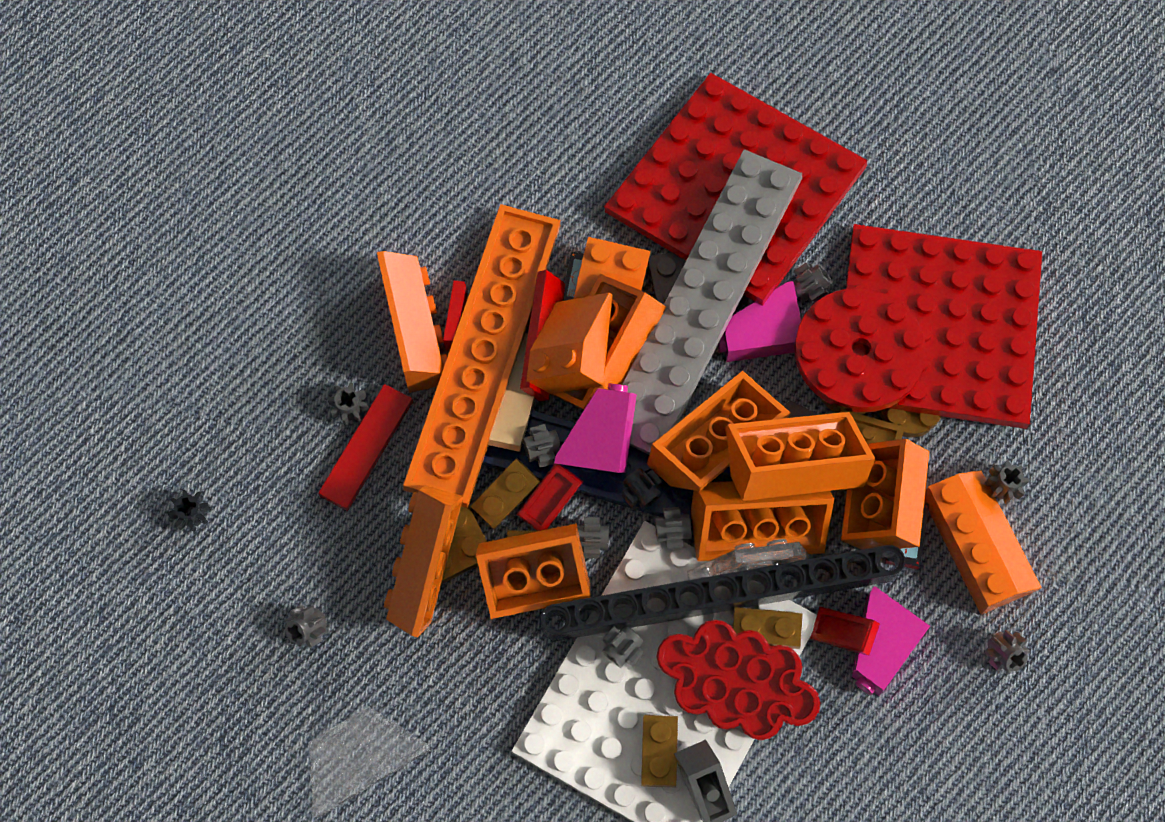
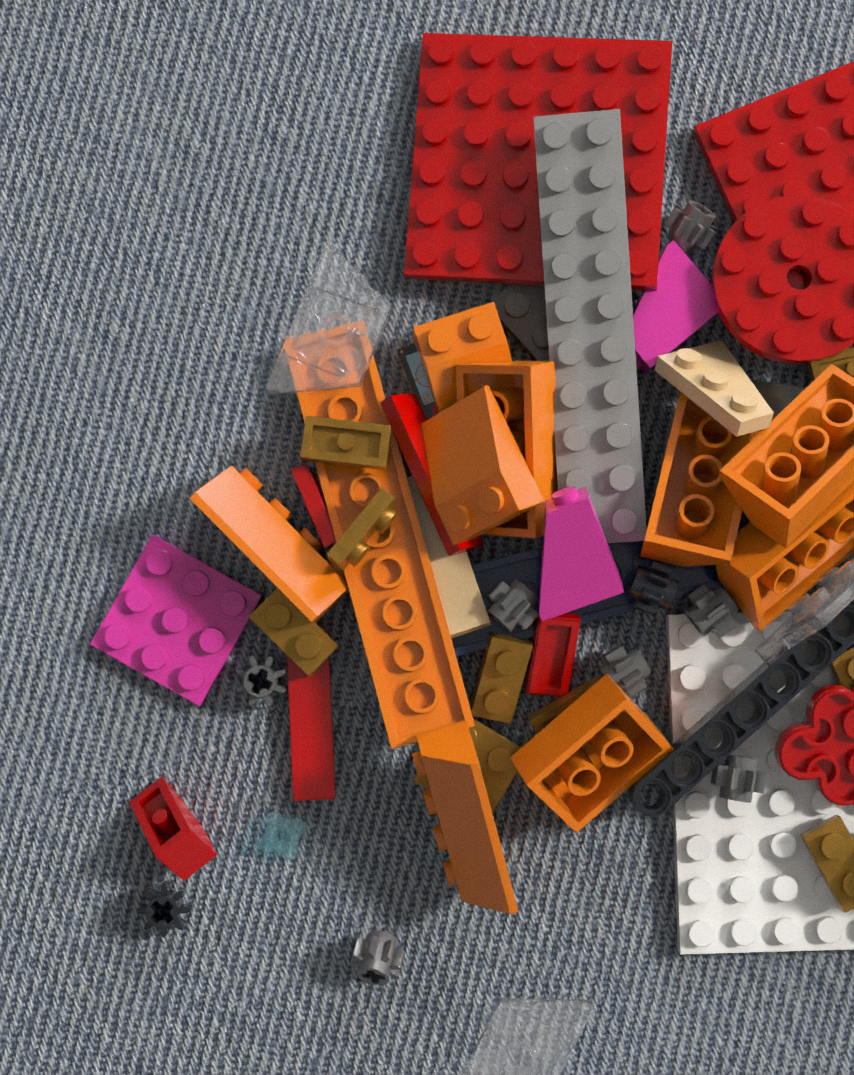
camera: 35 degrees left, 15 degrees up
(228, 464) = (172, 829): none -> red slope
(296, 521) = (271, 842): none -> clear light blue plate
(319, 337) = (176, 620): none -> dark pink plate
(389, 384) = (293, 632): none -> pearl gold plate
(482, 335) = (352, 544): none -> pearl gold plate
(499, 282) = (345, 443): none -> pearl gold plate
(534, 212) = (332, 330): none -> clear wing
(763, 381) = (717, 385): none -> tan wing

